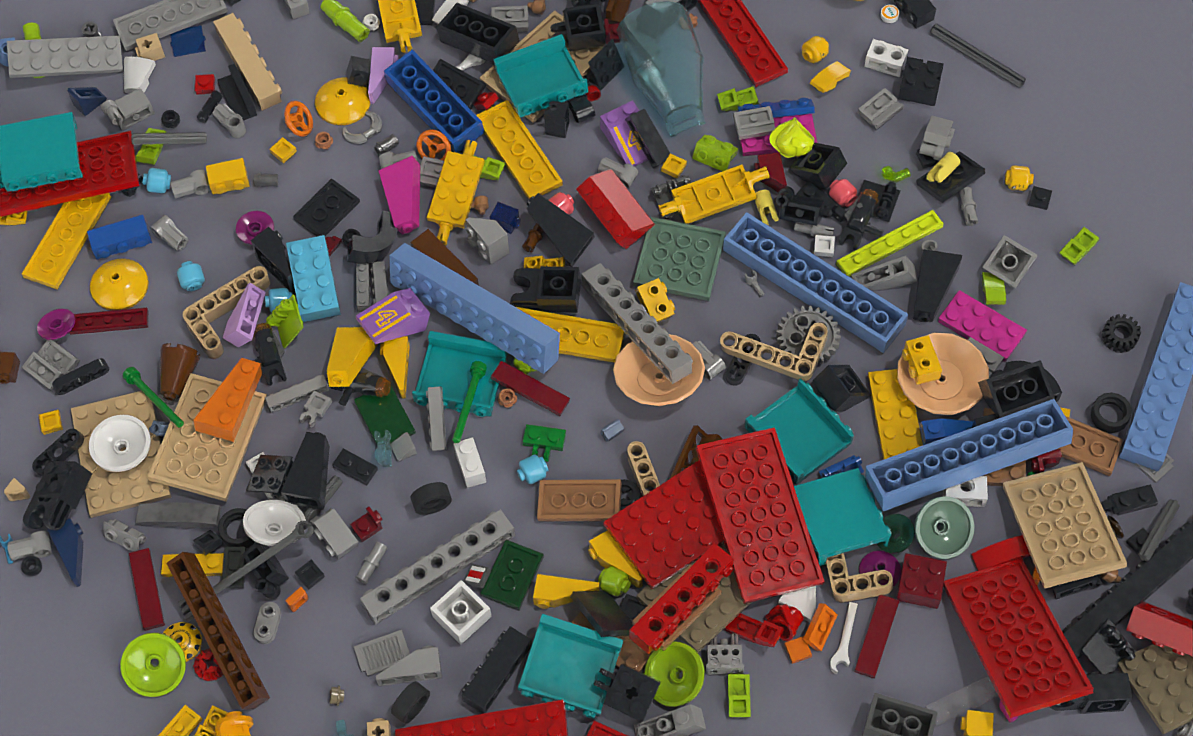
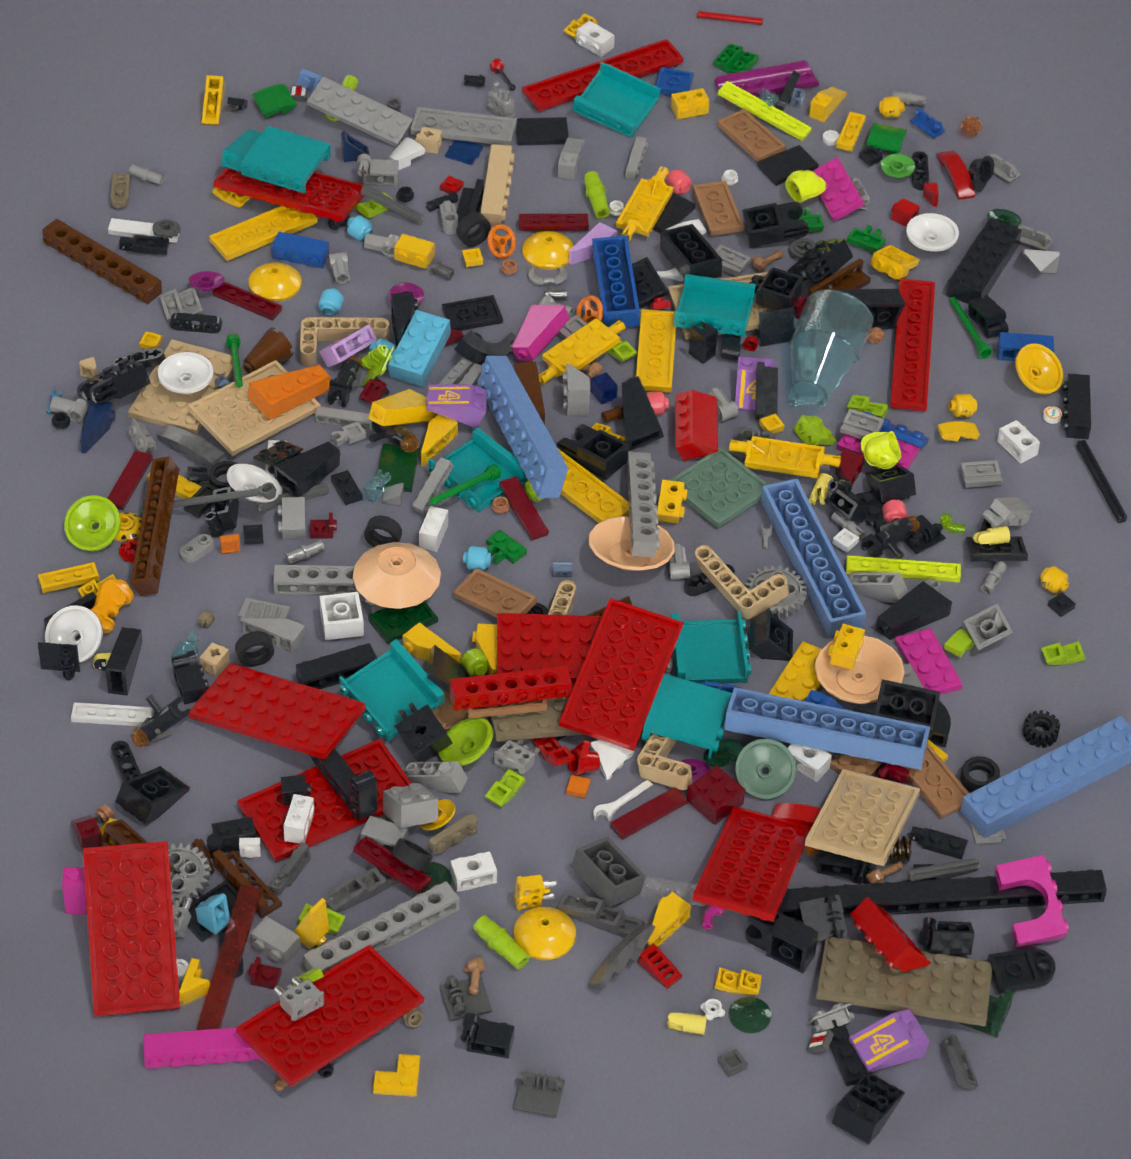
camera: 30 degrees right, 15 degrees down
(265, 121) = (469, 222): none -> black tyre
(303, 349) = (374, 391): none -> dark red bracket
(325, 70) = (553, 222): none -> dark red plate
(358, 71) = (575, 232): black brick -> none
(483, 554) = (396, 575): none -> light nougat dish
(820, 627) = (608, 780): orange plate -> none
(920, 81) = (1032, 471): black piece -> none

